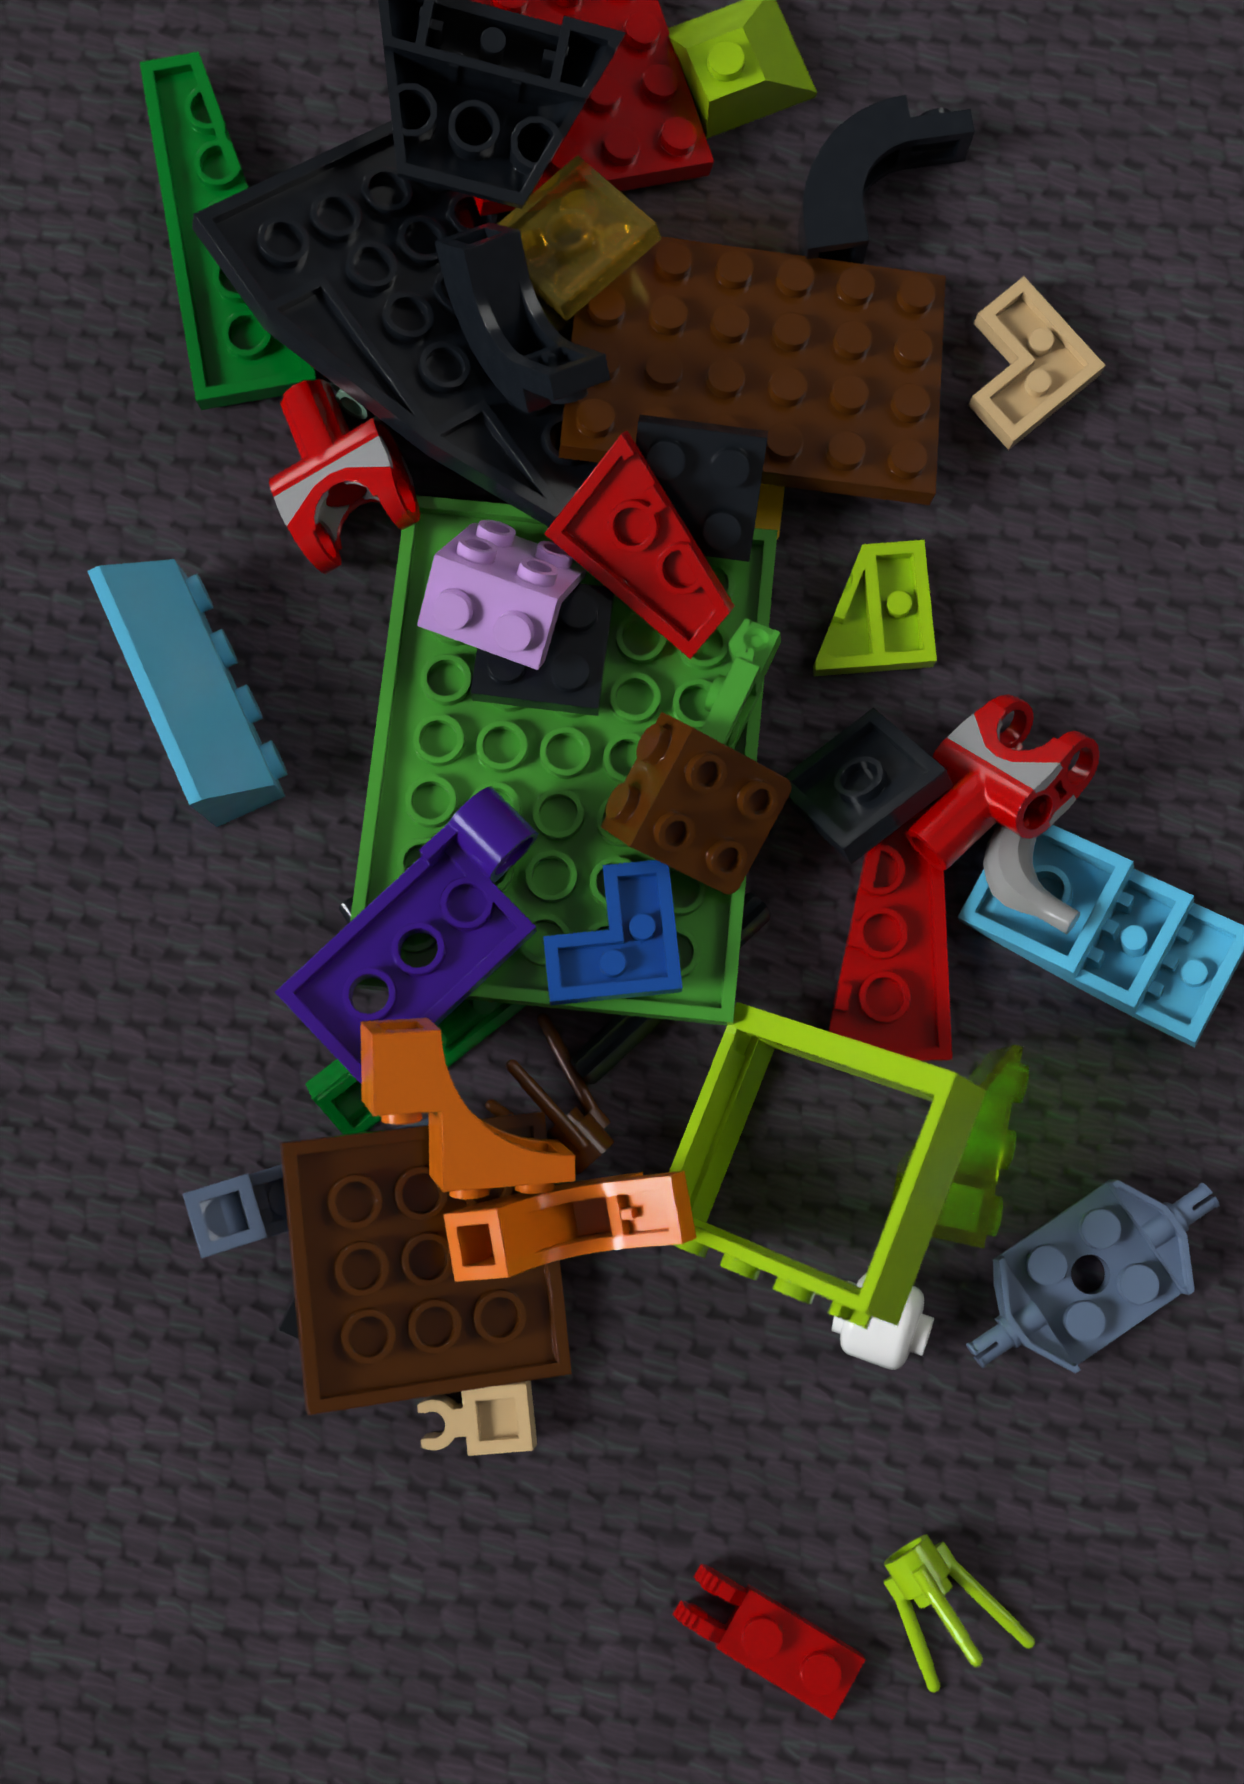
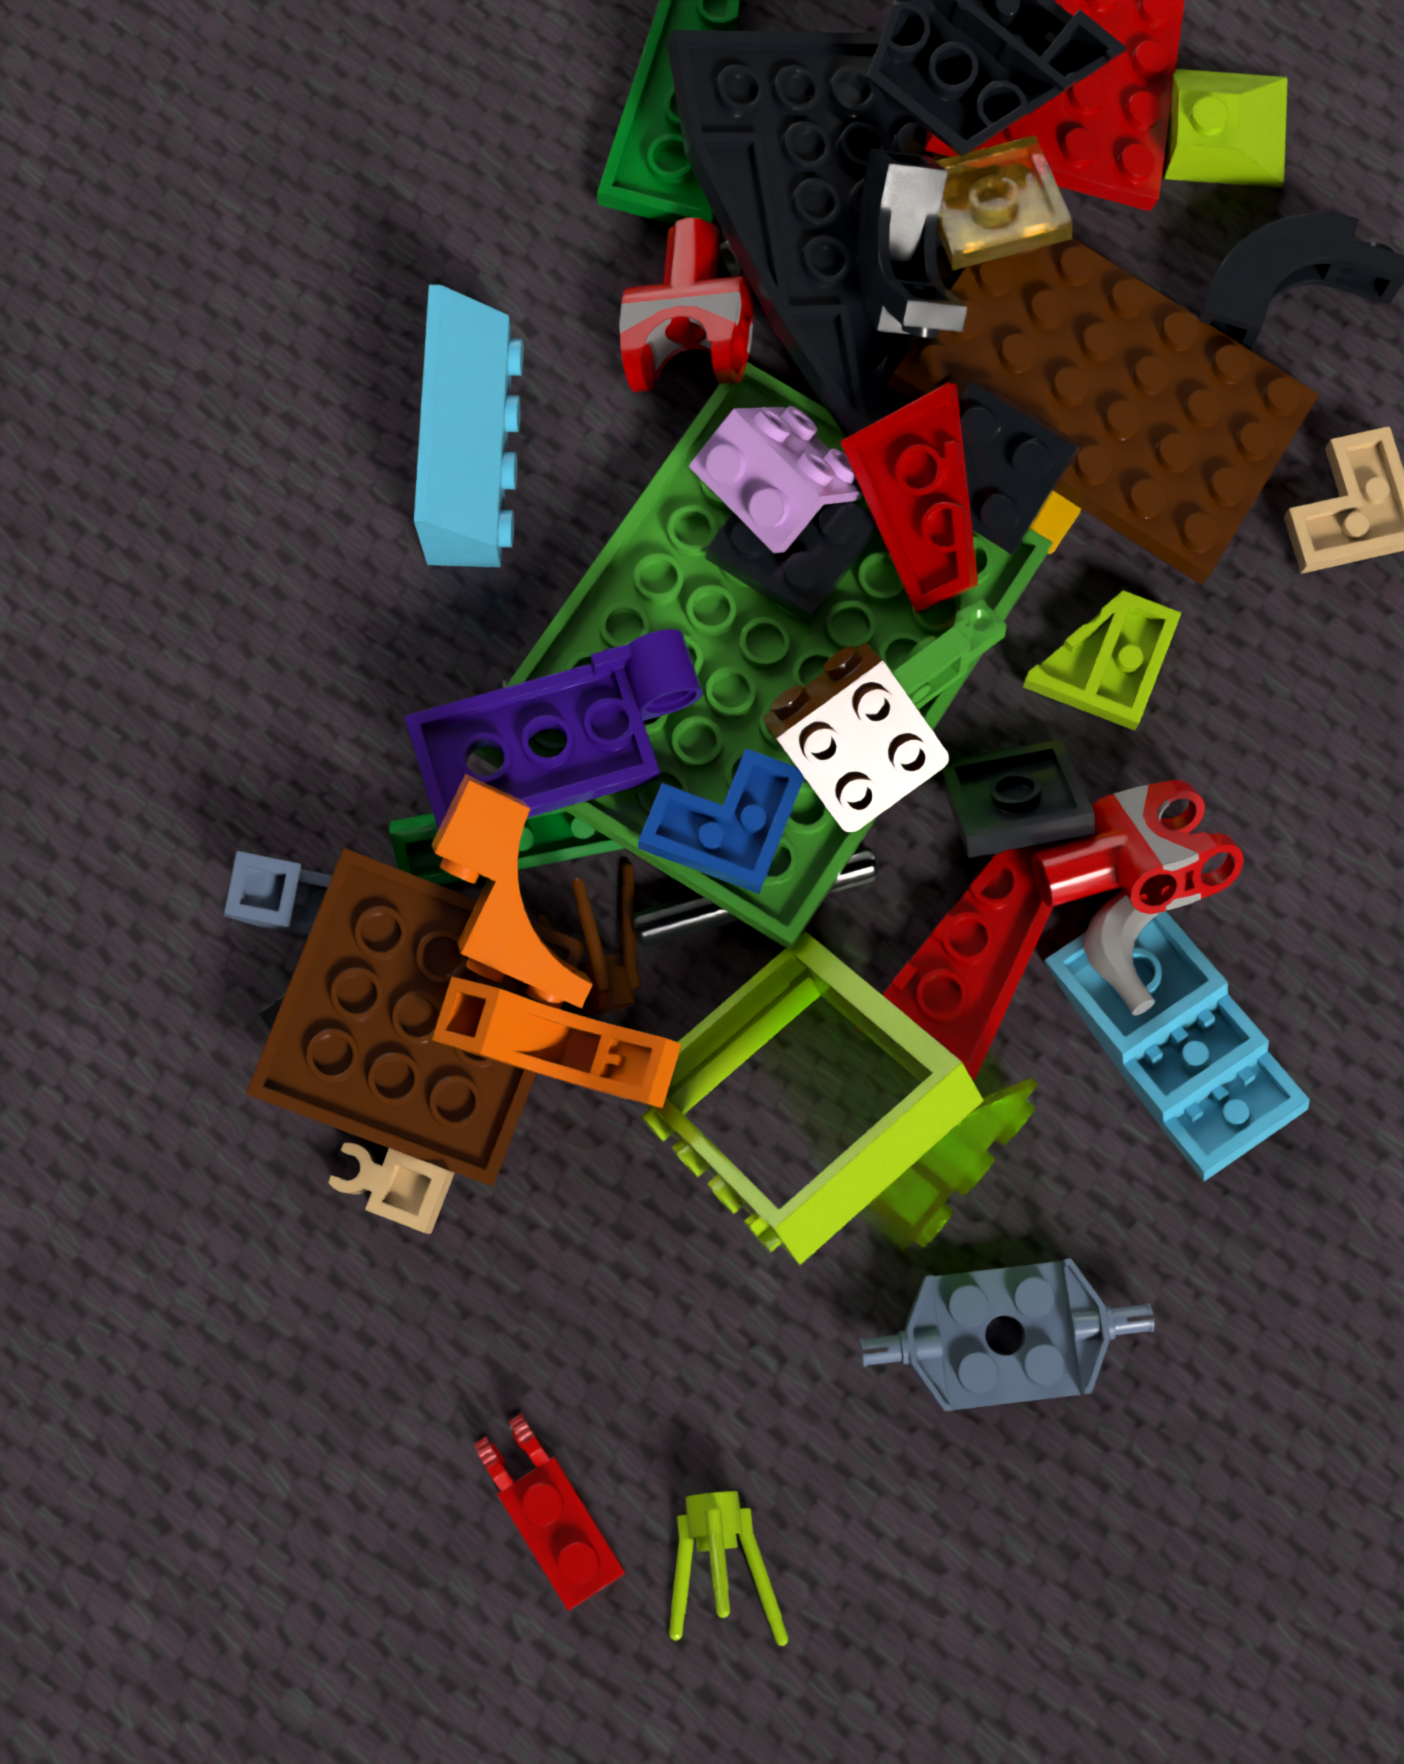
camera: 25 degrees right, 5 degrees down
(885, 1342) = (791, 1290): white head -> none

